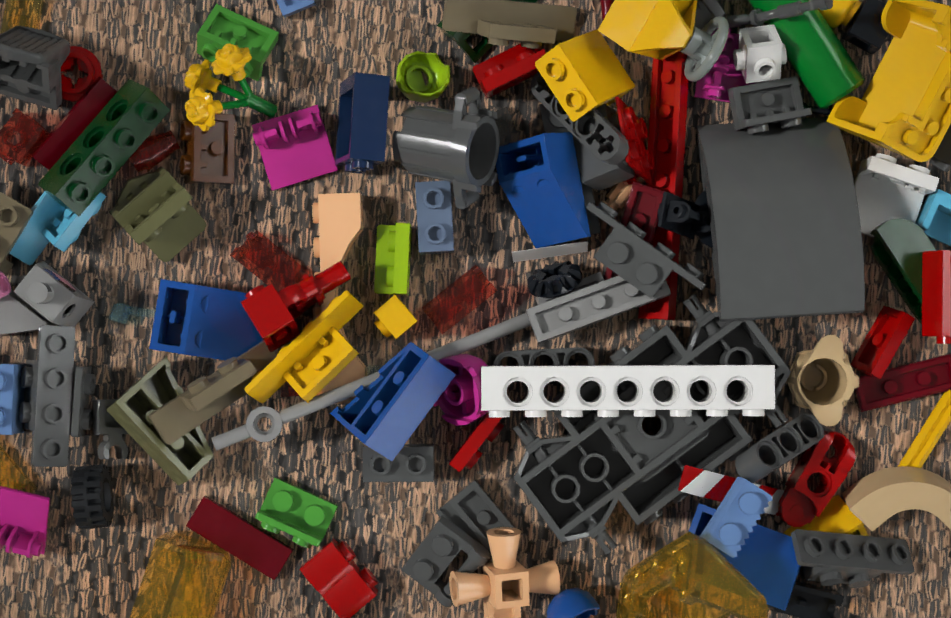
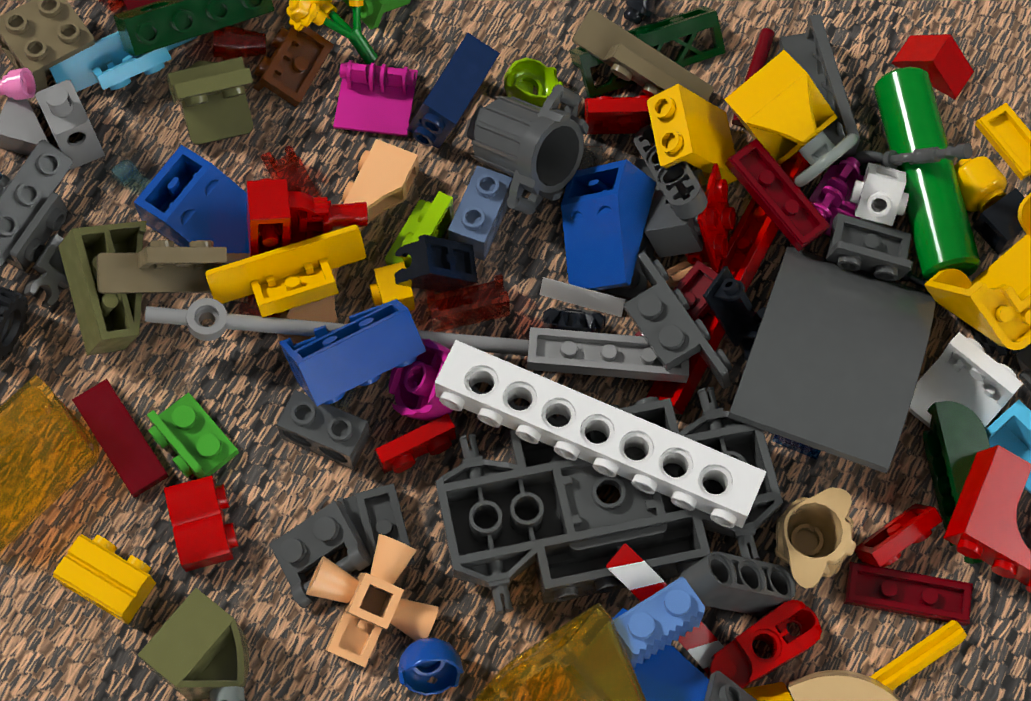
camera: 20 degrees right, 20 degrees down
(426, 288) = (437, 265): none -> black hinge
(675, 95) = (777, 195): none -> dark red tile

